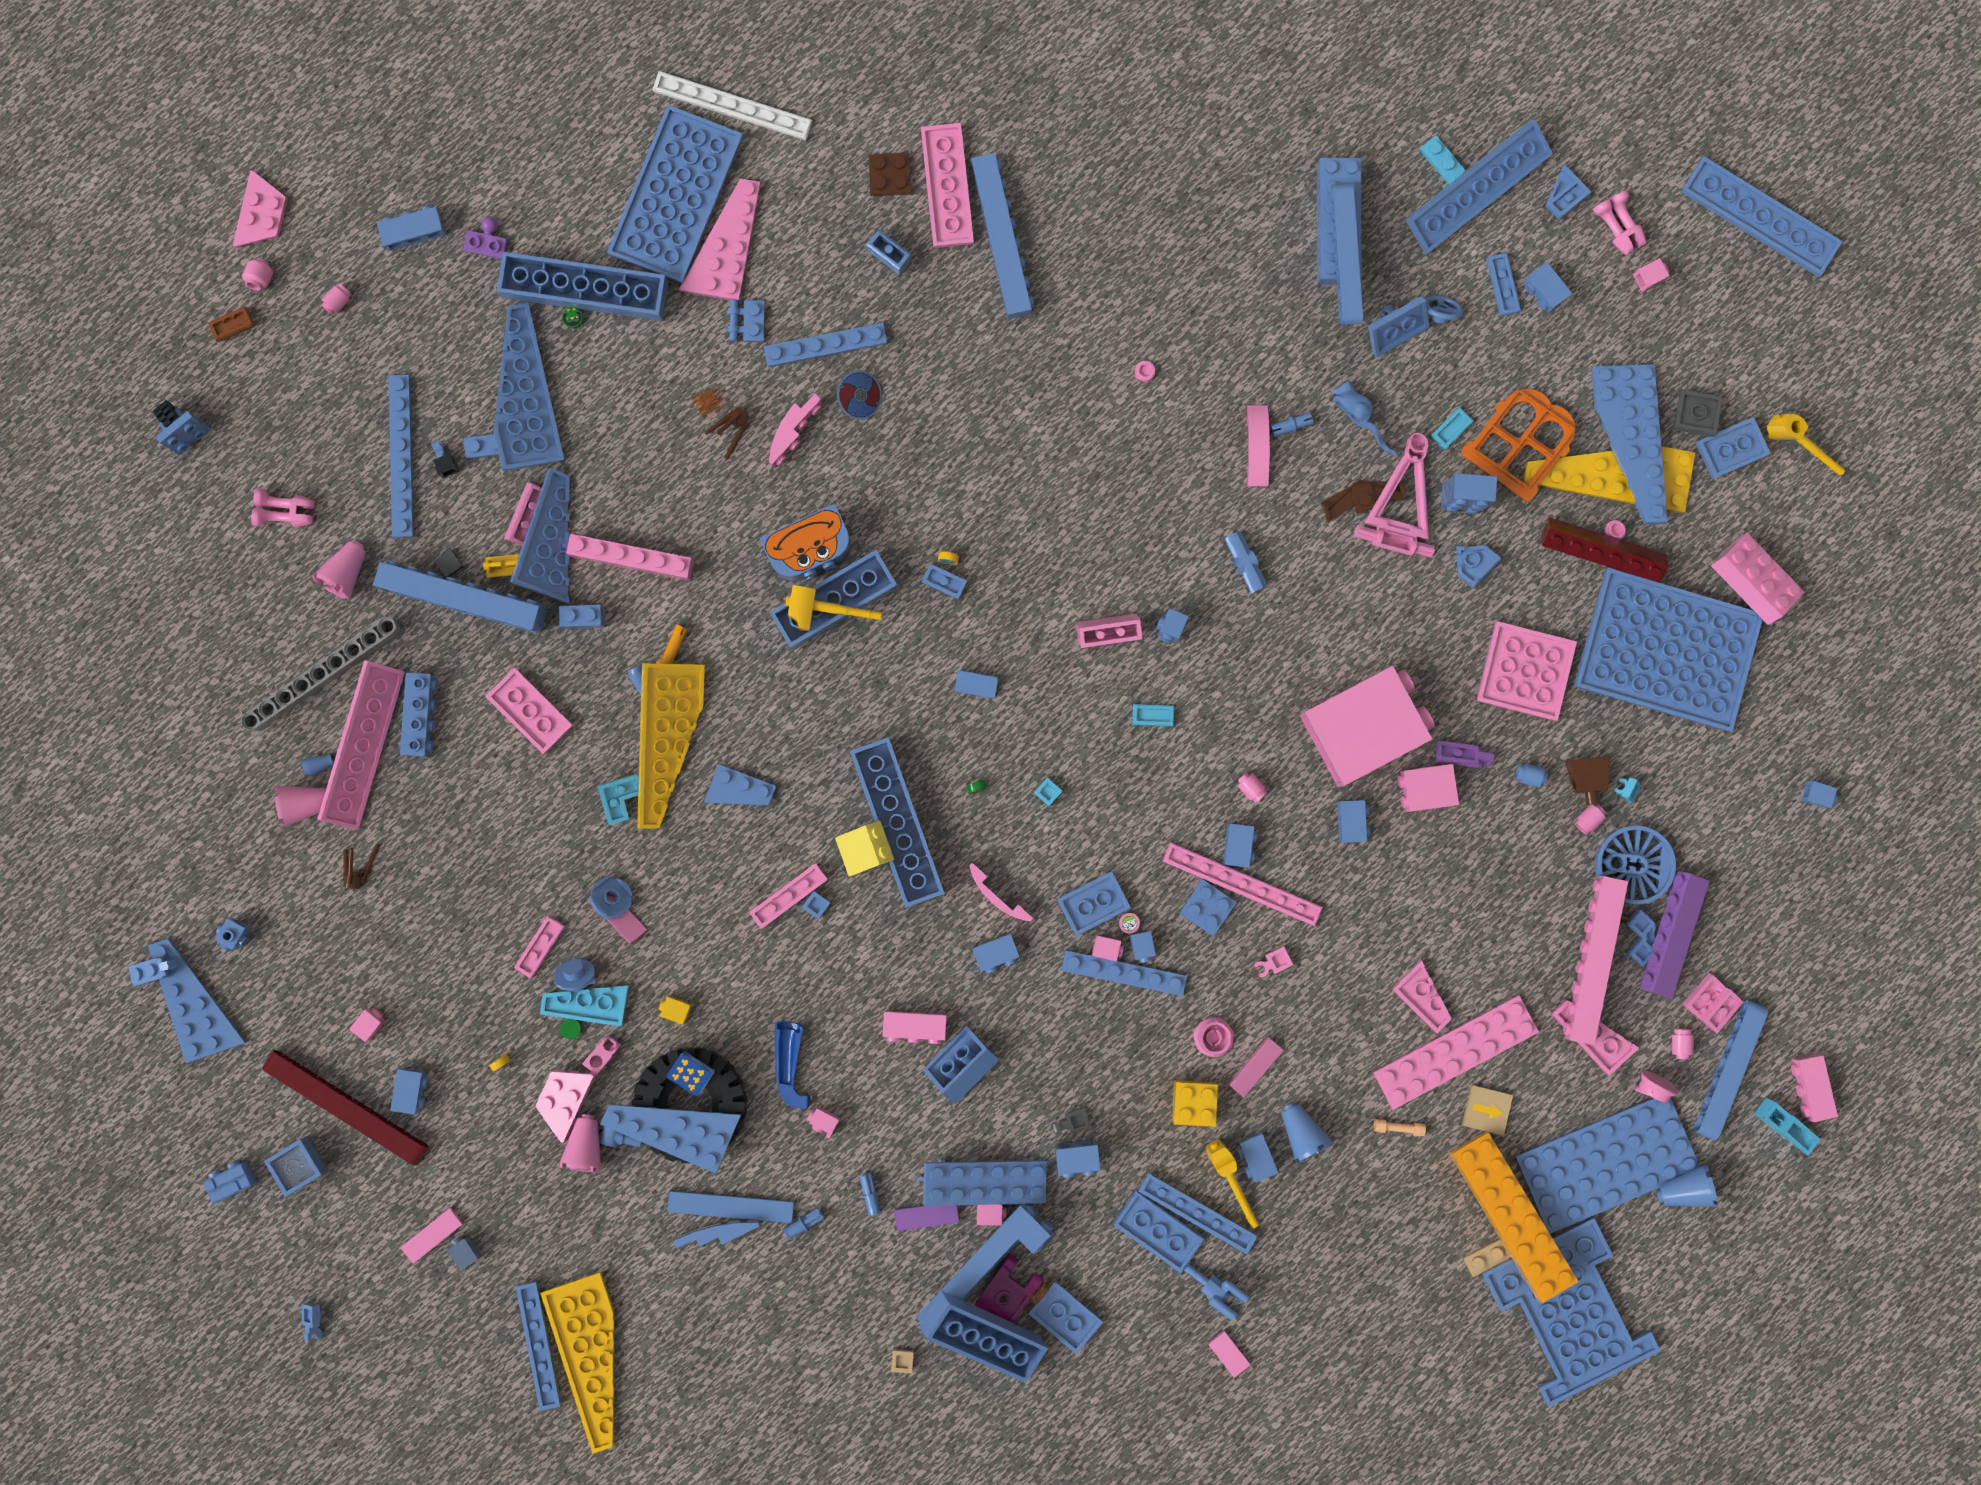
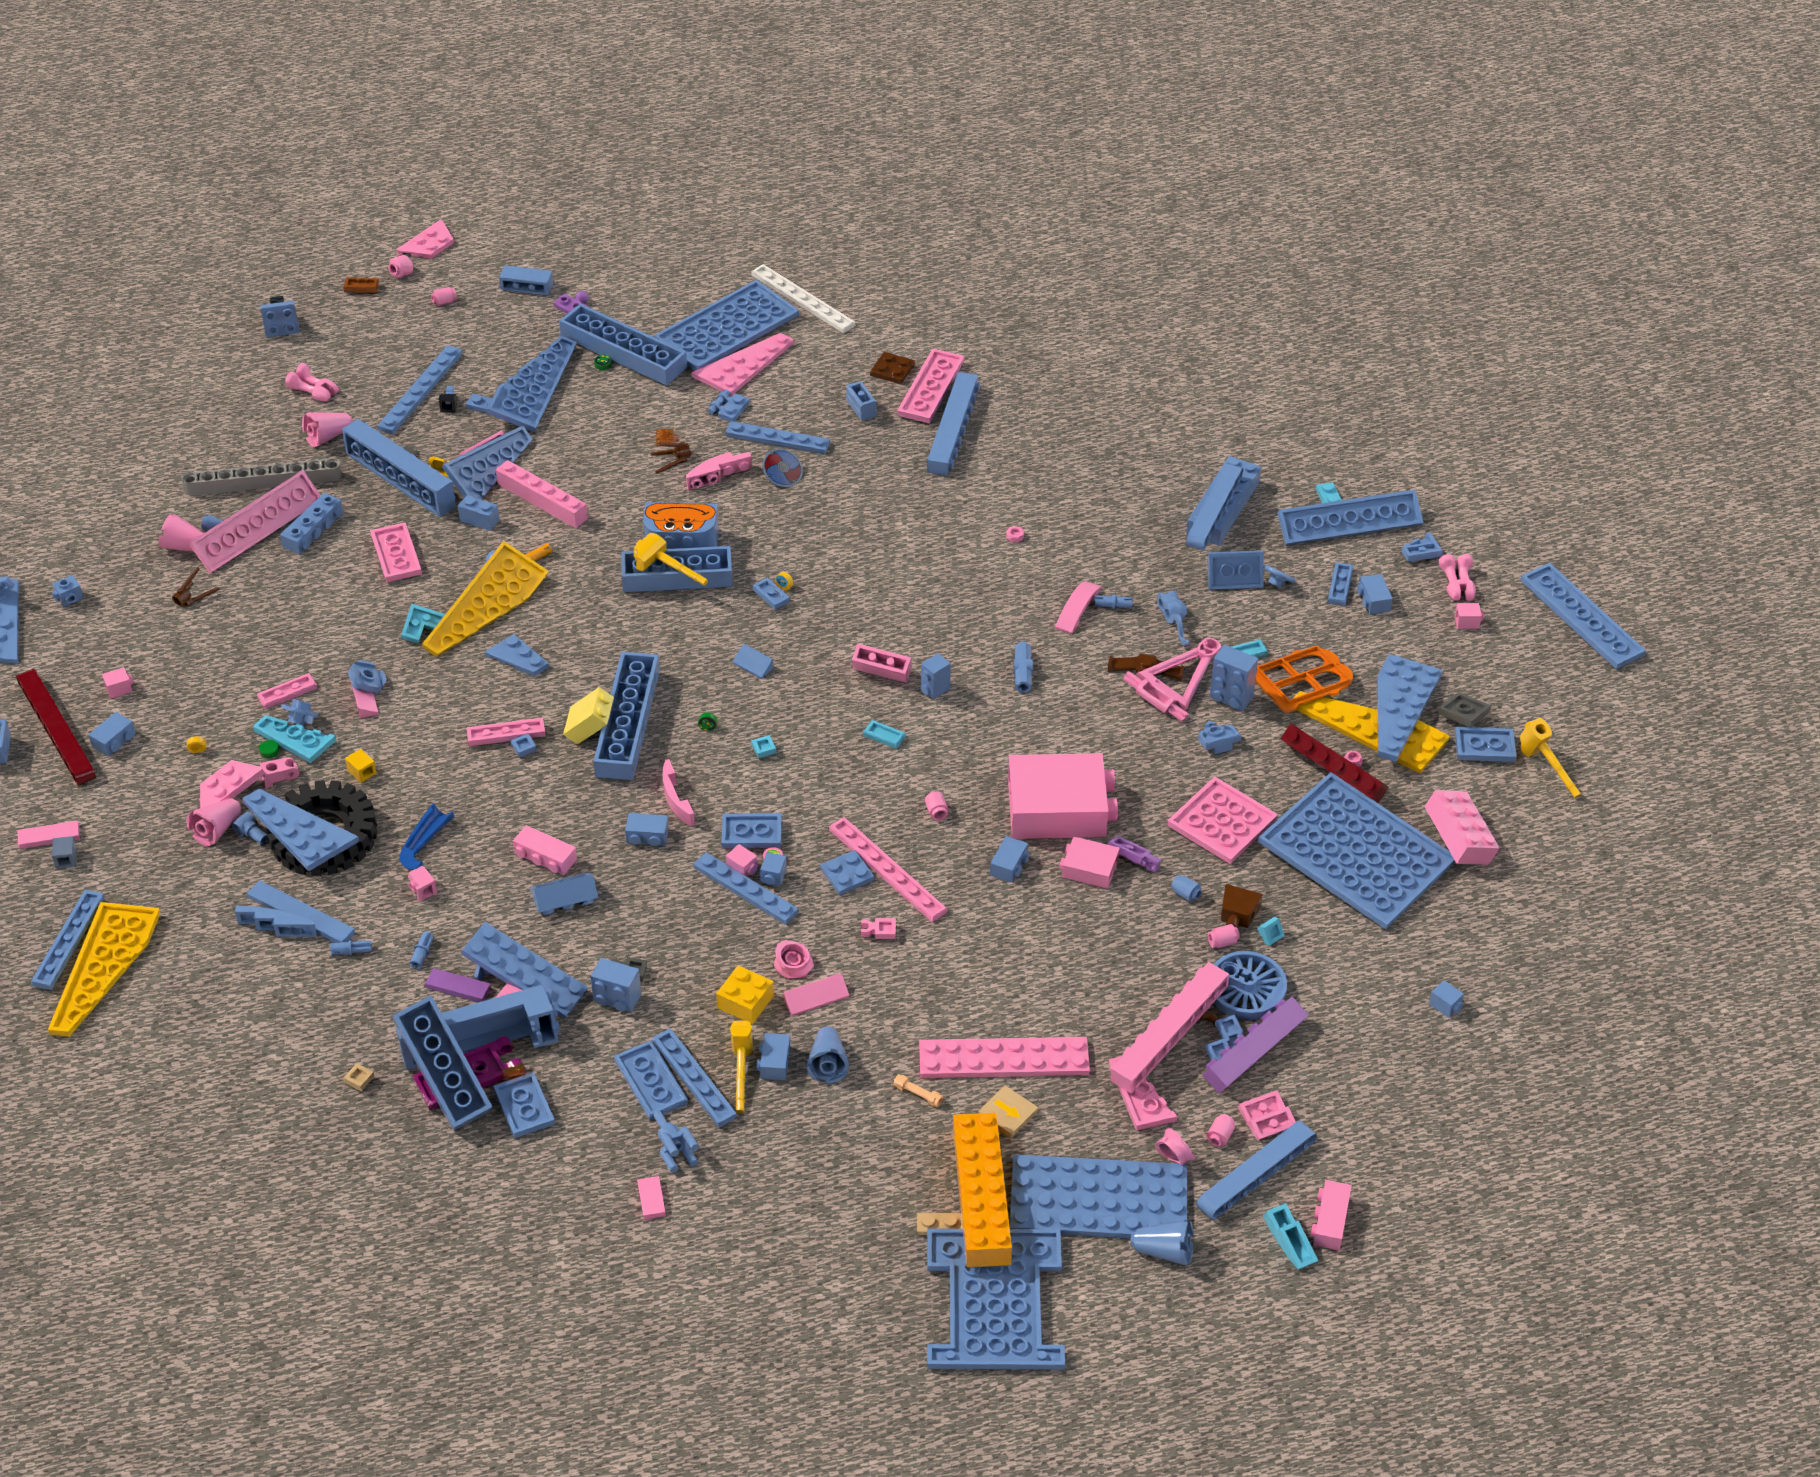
camera: 25 degrees right, 40 degrees down
(690, 1073) = (339, 790): blue piece -> none
(1239, 845) = (900, 838): medium blue brick -> none
(1421, 996) = (997, 1004): bright pink wing -> none

